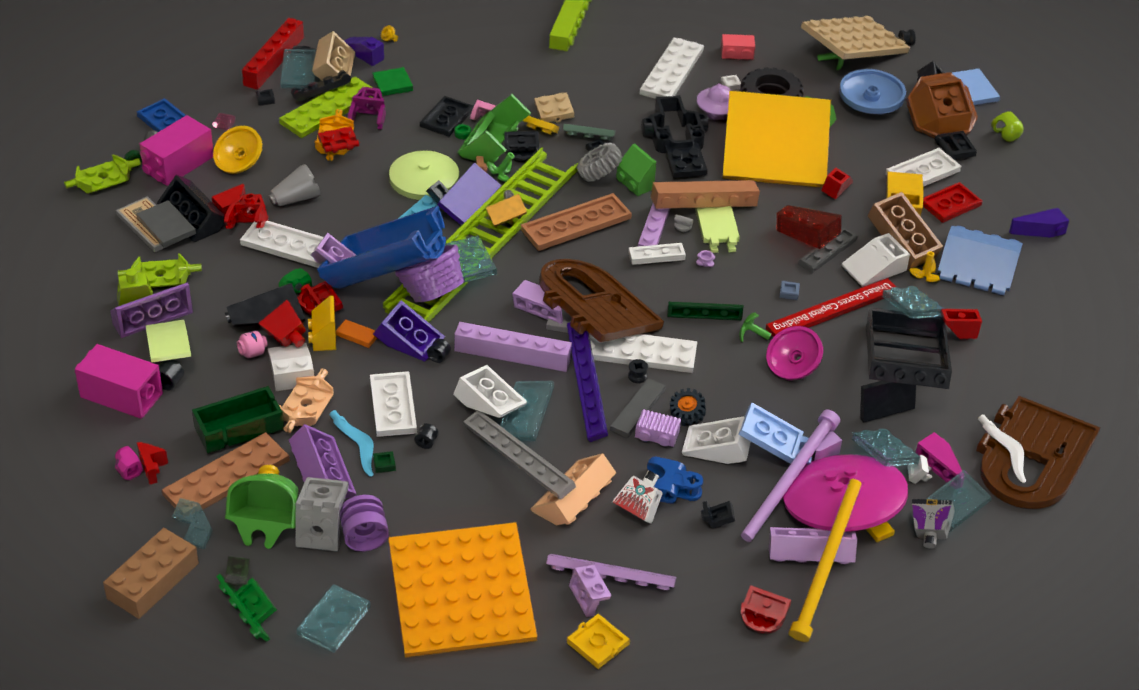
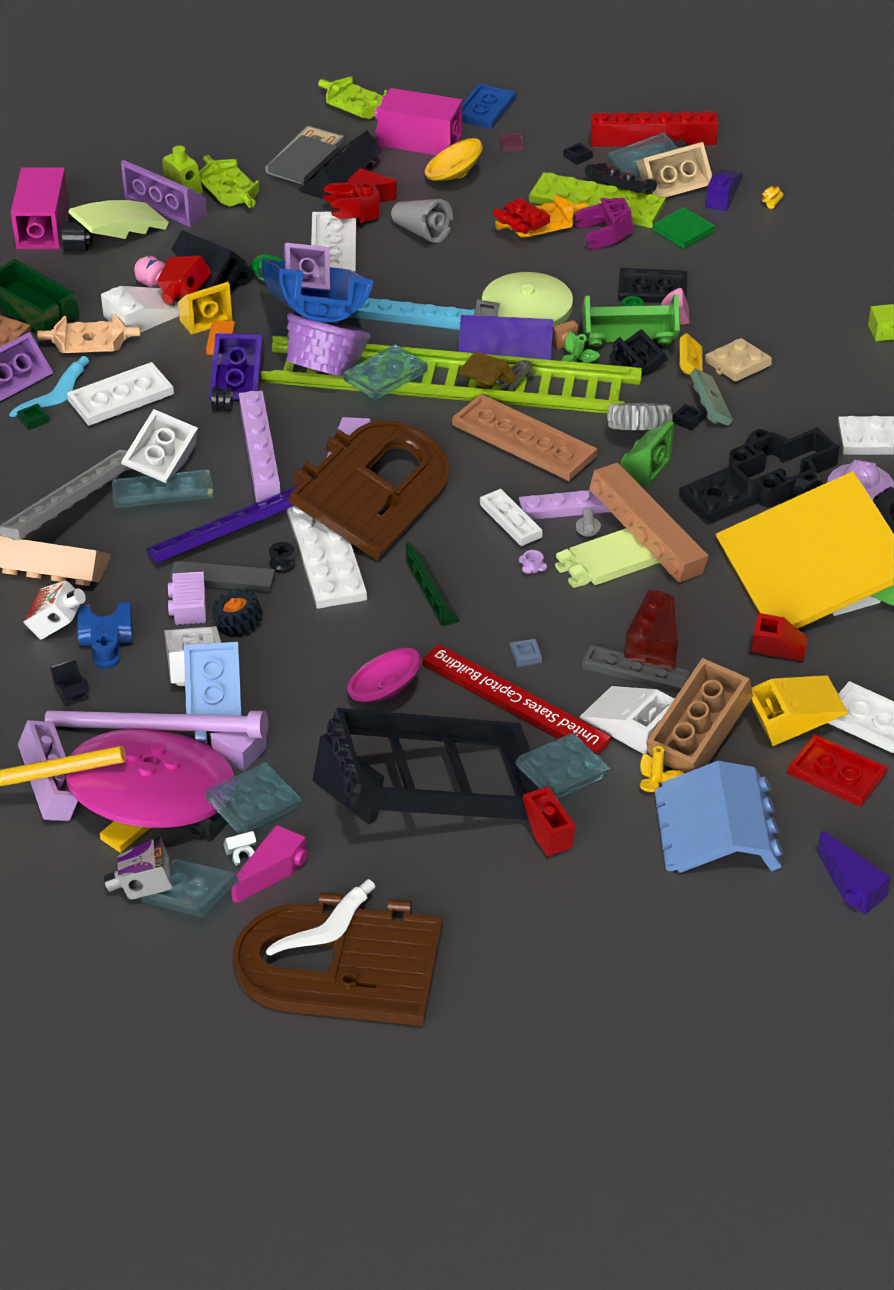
camera: 70 degrees right, 0 degrees up
(312, 297) = (250, 294): red slope -> none
(426, 436) = (80, 429): black wheel -> none
(749, 325) = (422, 624): bright green plant -> none

